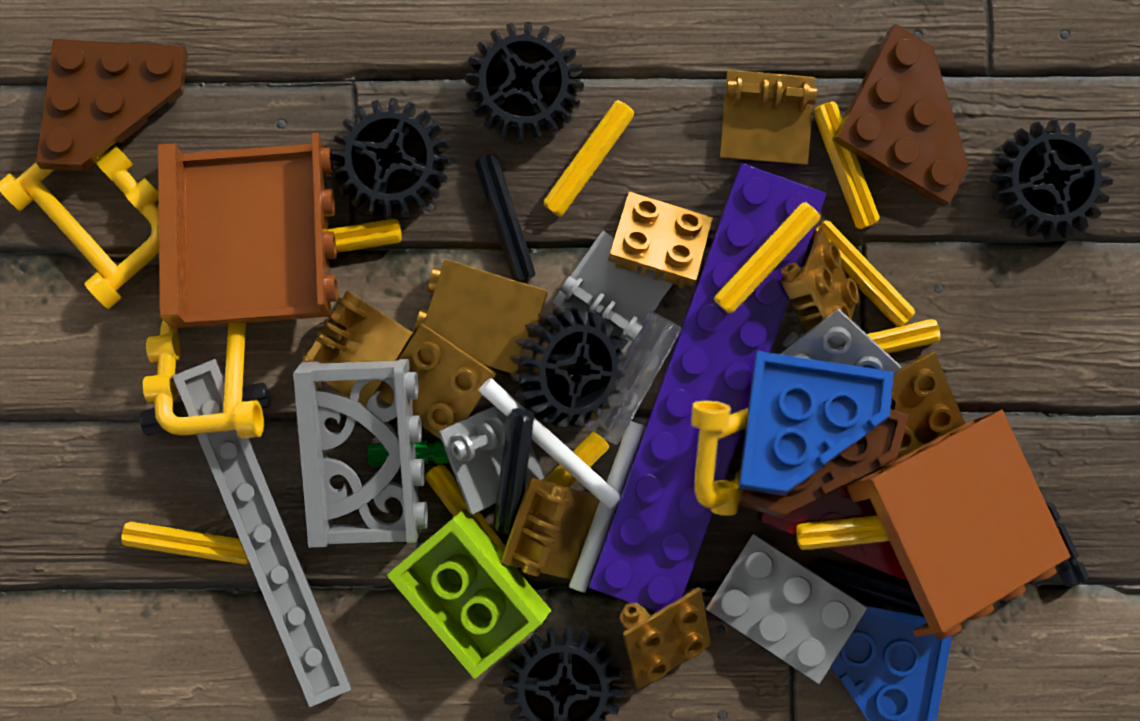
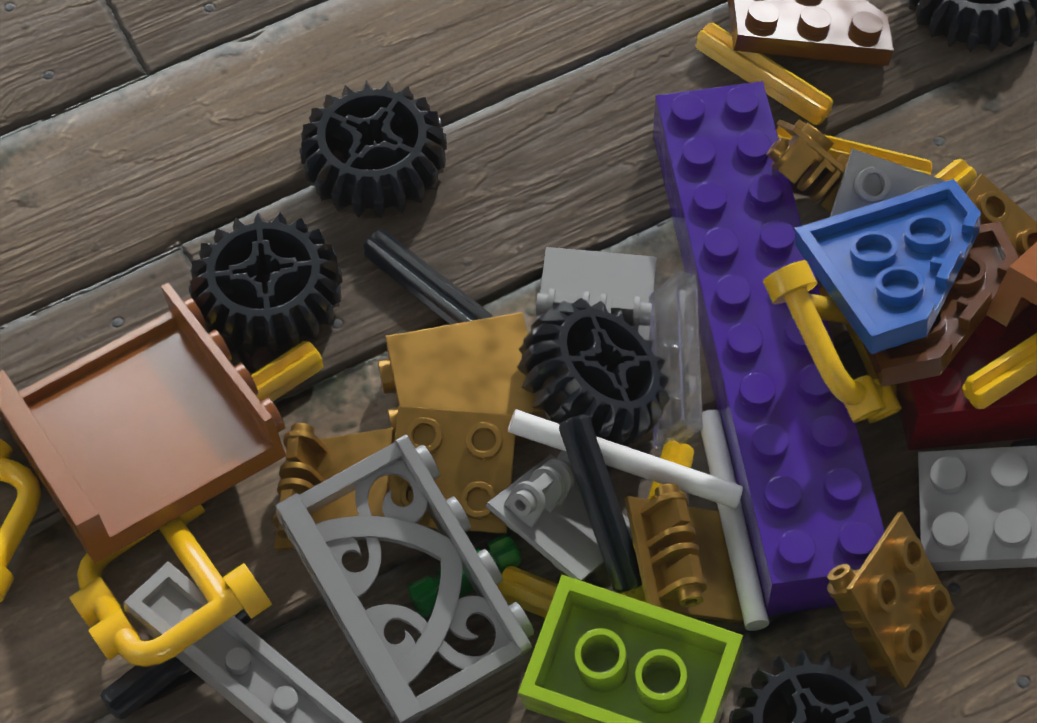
camera: 30 degrees left, 30 degrees down
(588, 158) = (487, 191): yellow axle -> none
(660, 239) = (635, 208): hinge -> none
(767, 117) = (649, 63): pearl gold hinge -> none
(767, 257) = (742, 153): yellow axle -> none

